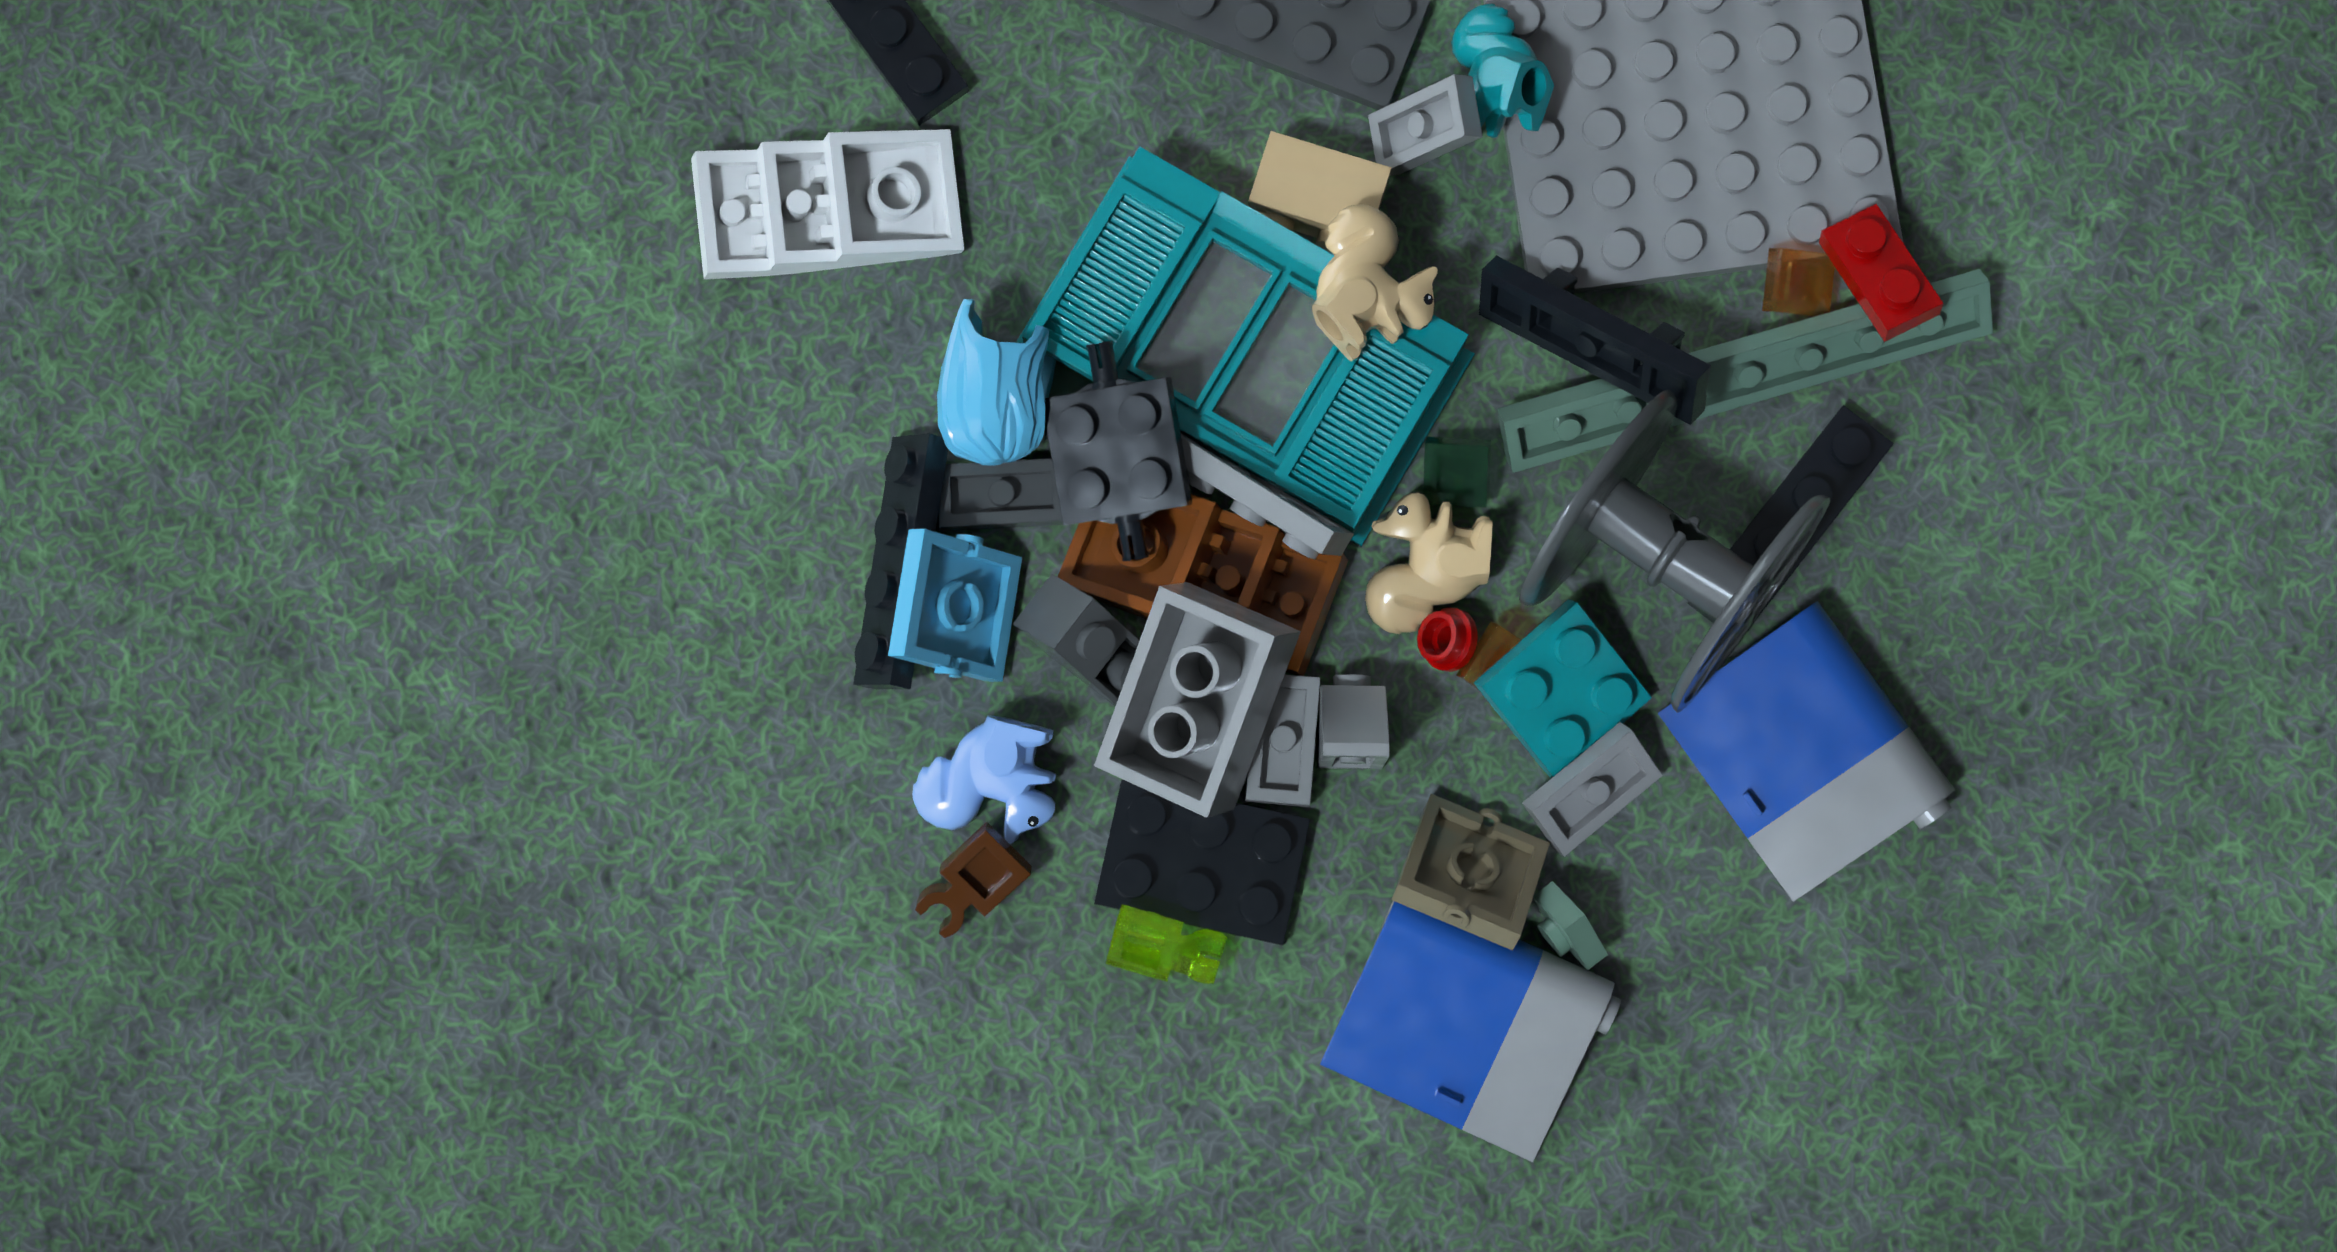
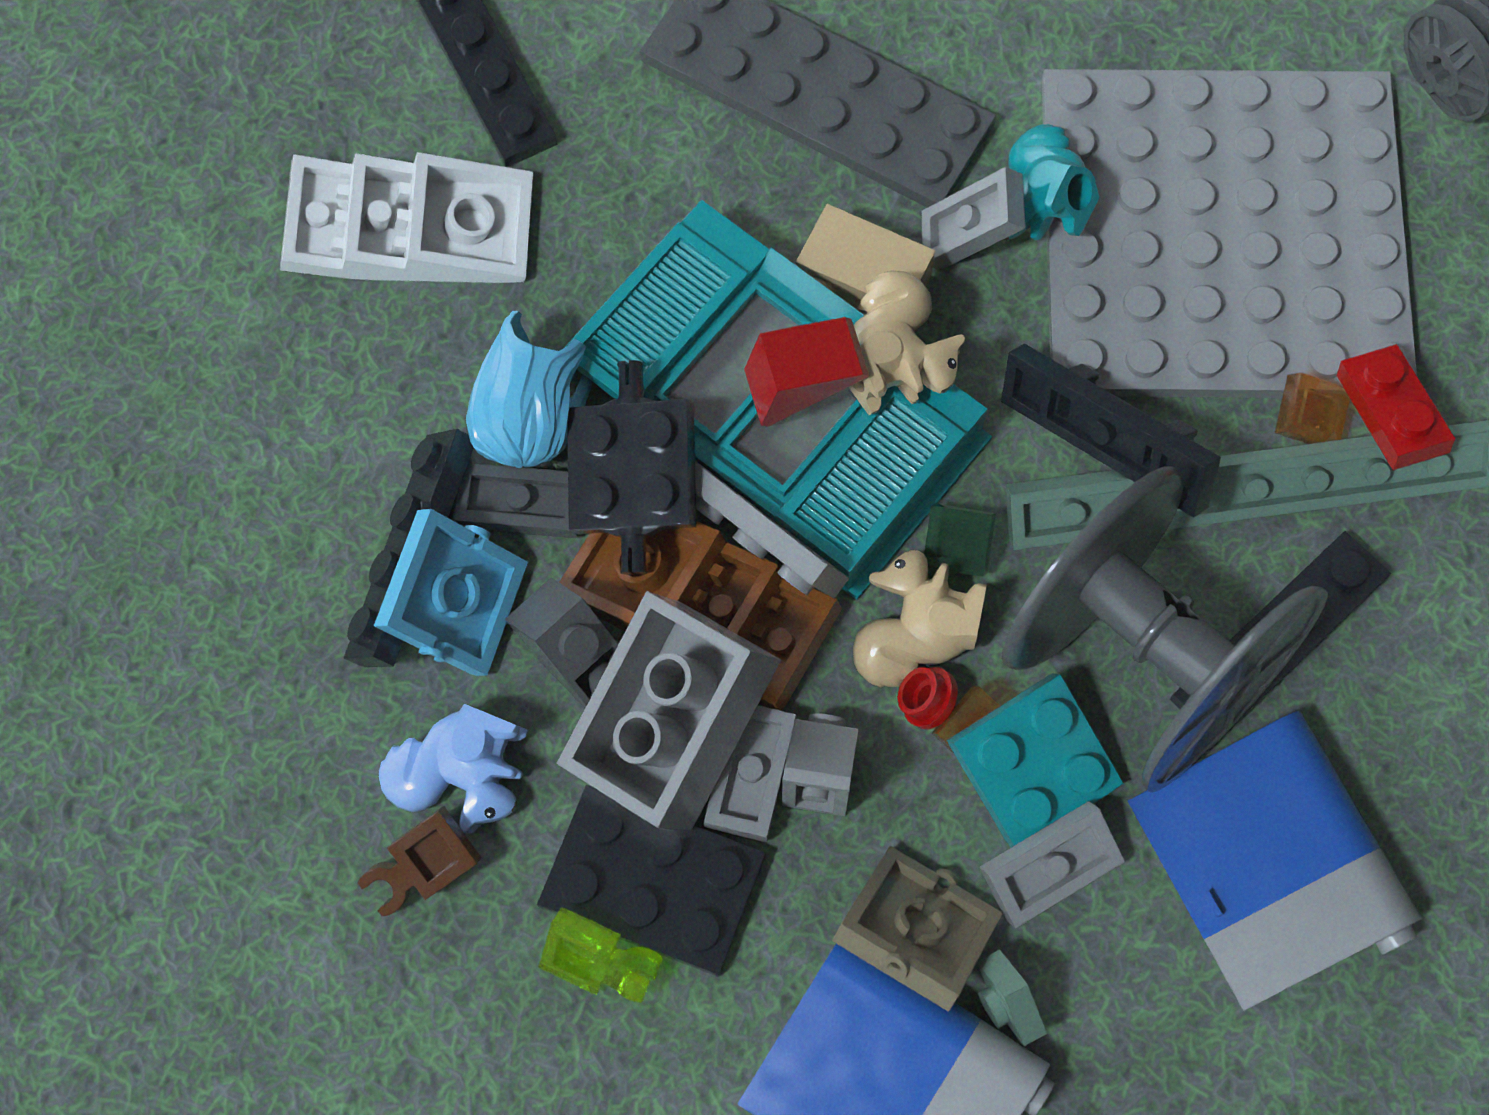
camera: 10 degrees right, 10 degrees down
(1280, 328) = (803, 366): none -> red slope

